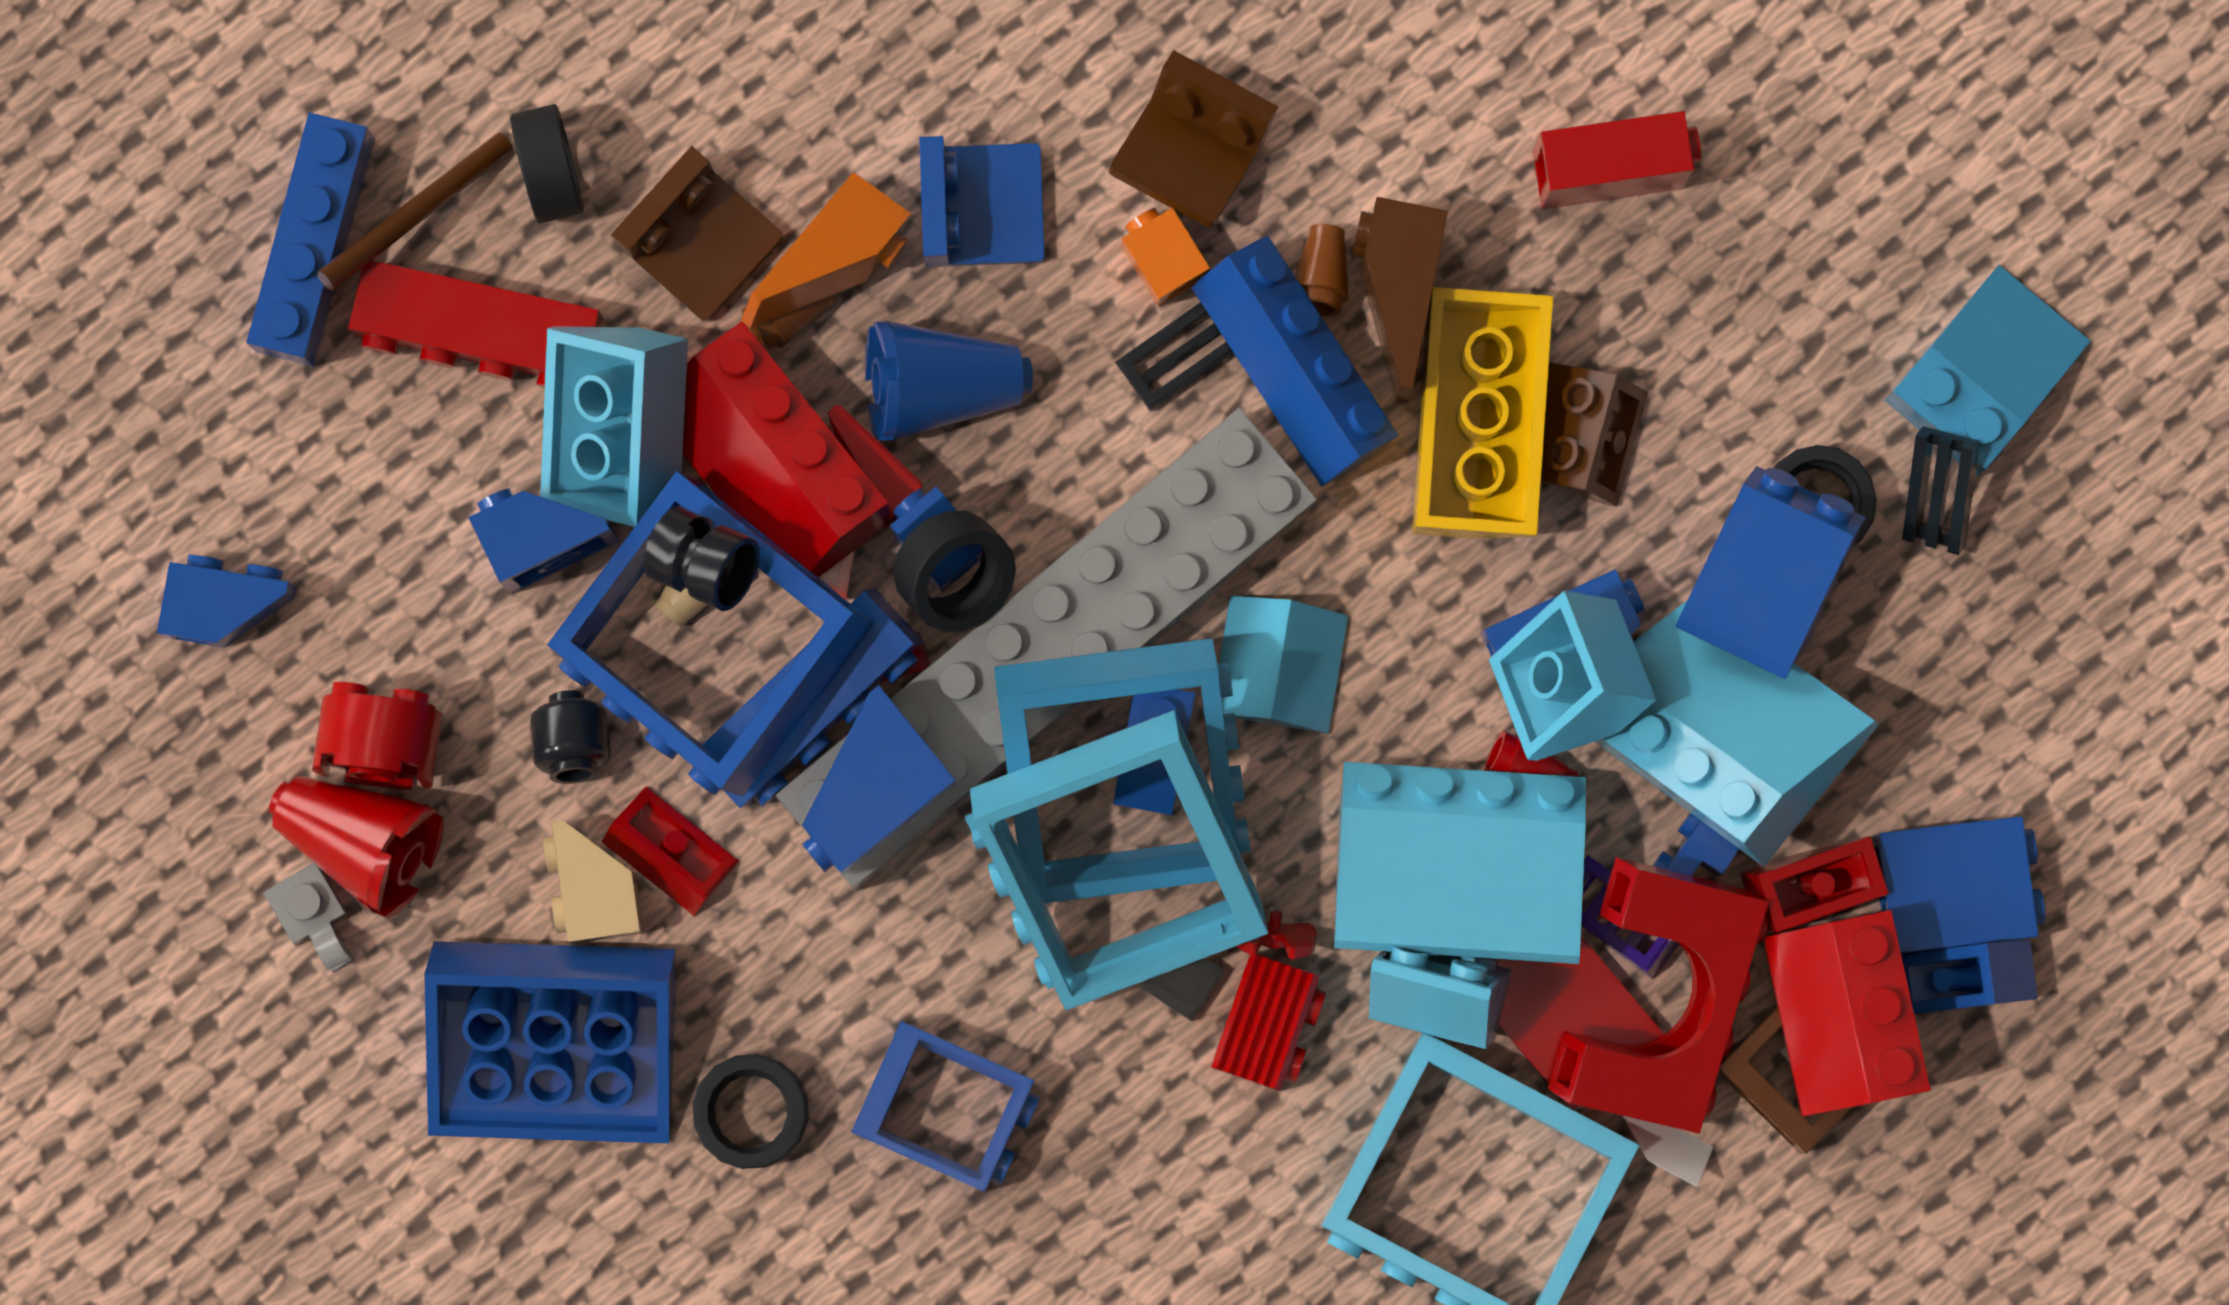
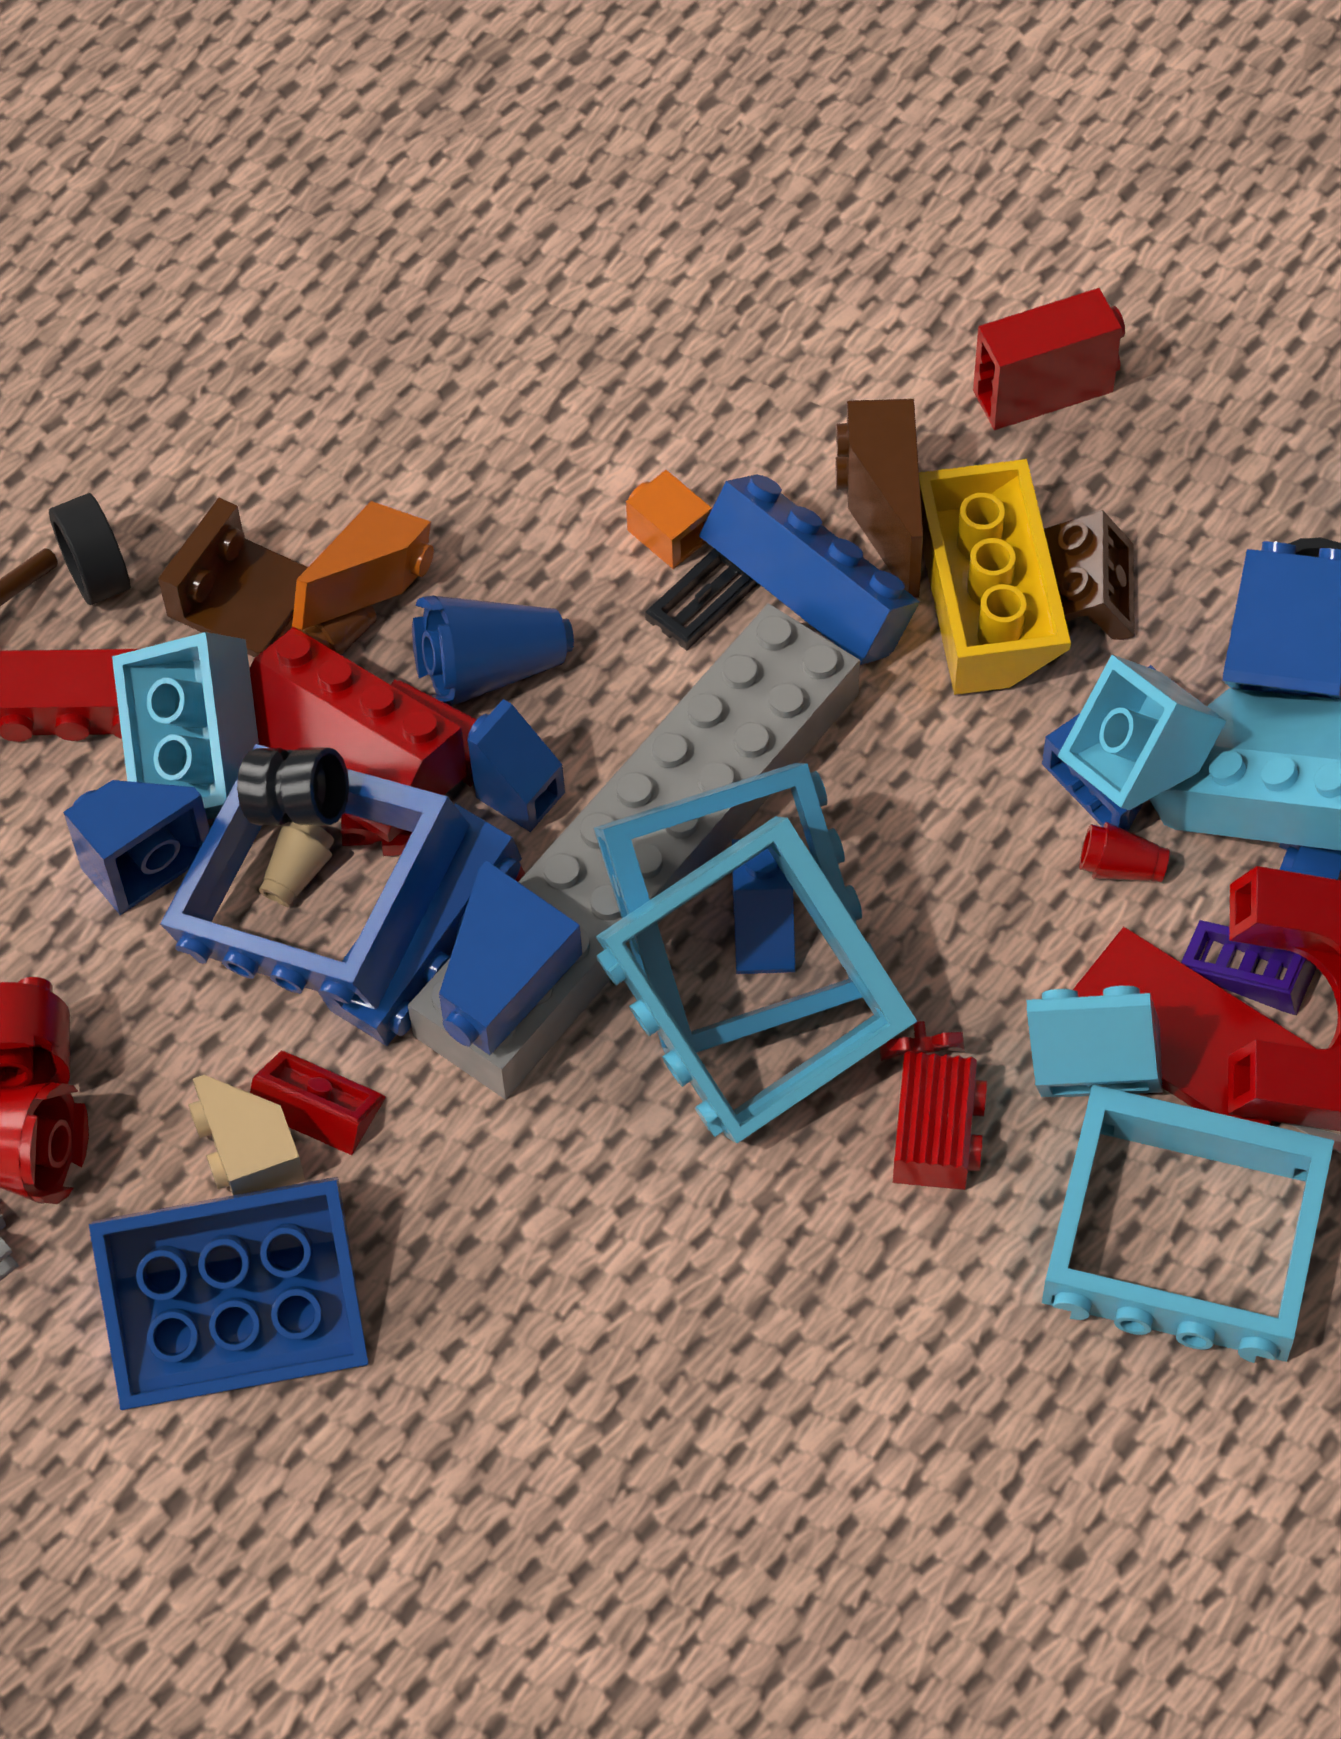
camera: 10 degrees left, 25 degrees down
(570, 737) = (198, 1014): black head -> none
(705, 1115) = (455, 1354): black tyre -> none
(888, 1082) = (643, 1213): blue window -> none
(934, 541) = (498, 773): black tyre -> none
(981, 203) = (490, 515): blue bracket -> none
(1185, 987) = (844, 1108): black tile -> none
(1194, 140) = (674, 417): reddish brown bracket -> none
(1282, 661) = (874, 813): medium azure slope -> none
(1324, 269) = (814, 493): dark orange cone -> none
(1460, 862) = (1082, 921): medium azure slope -> none

